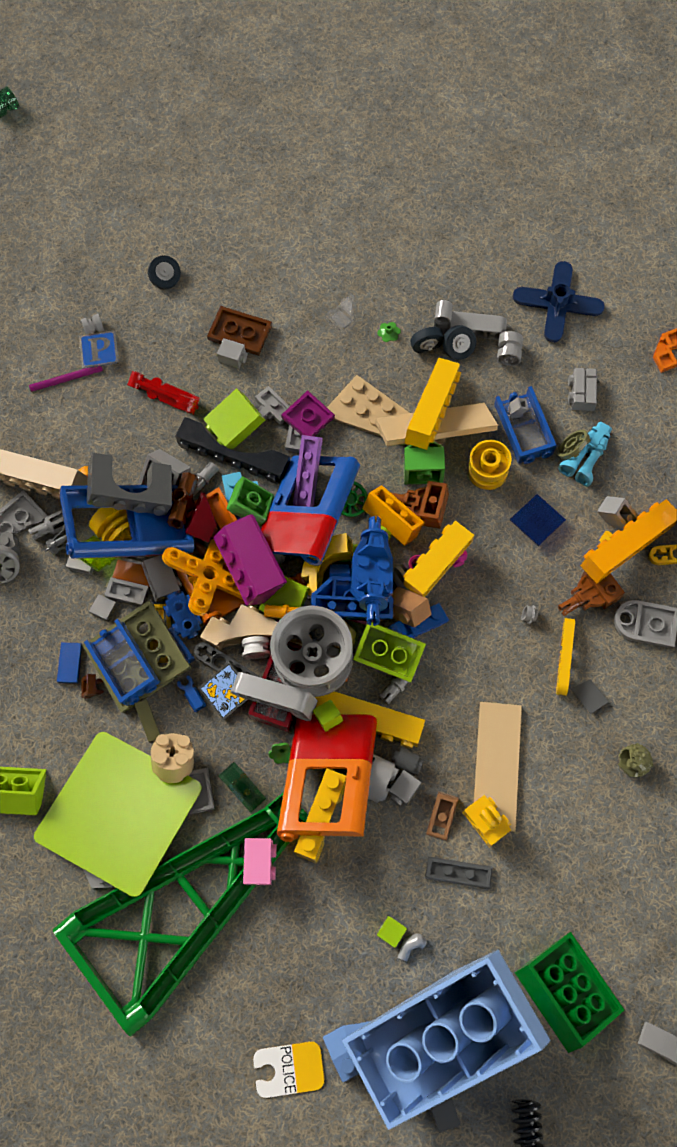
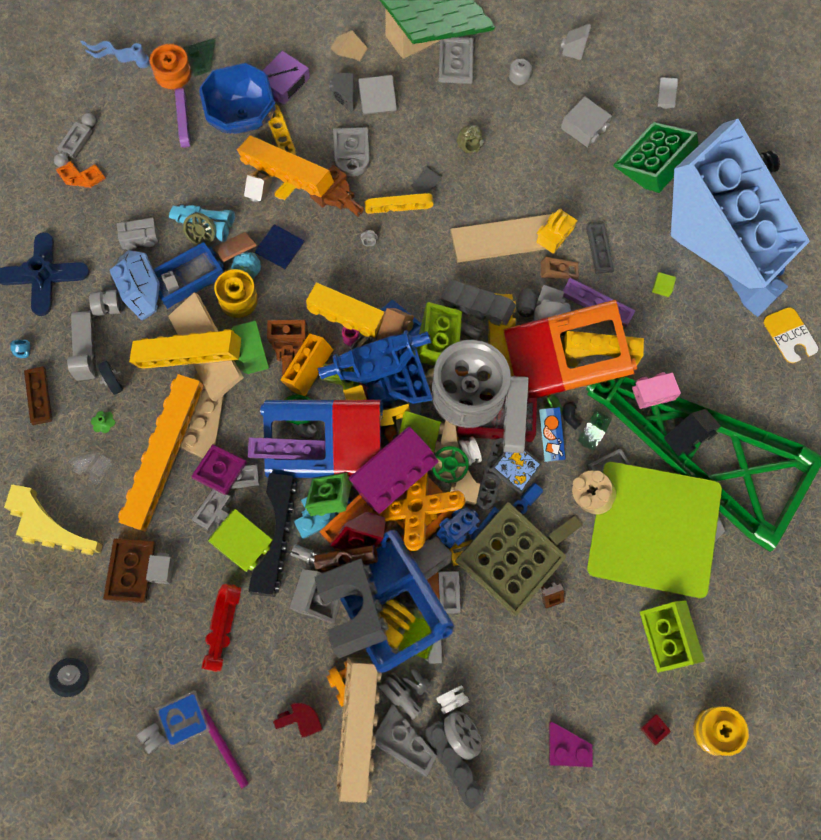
camera: 115 degrees left, 0 degrees up
(30, 566) = (452, 699): none -> white wheel
(64, 442) = (304, 715): none -> dark red brick
(69, 663) = (535, 625): blue tile -> none
(103, 607) = (470, 612): light grey tile -> none
(123, 664) = (525, 564): door -> none
(198, 885) = (693, 429): none -> black brick
(243, 620) = (451, 464): none -> green wheel
(249, 739) = (552, 434): none -> sticker
(266, 766) = (569, 415): none -> black arm
(277, 611) = (433, 427): light orange pin -> none
(300, 268) = (39, 526): none -> light yellow arch
(328, 715) = (517, 365): lime piece -> none
(339, 370) = (161, 453): none -> light orange brick
(388, 843) = (588, 297): none -> medium lavender plate
(410, 943) = (664, 267): light grey arm -> none
(414, 701) = (478, 302): none -> dark grey brick
(428, 281) = (38, 396): none -> reddish brown plate
(459, 342) = (107, 347): black wheel -> none
(482, 273) = (20, 346): none -> dark azure tile
(522, 482) = (248, 263): none -> medium azure piece
(526, 375) = (136, 283): none -> medium blue wedge
(546, 475) = (234, 246): none -> nougat piece
(634, 913) = (586, 122): none -> light grey brick

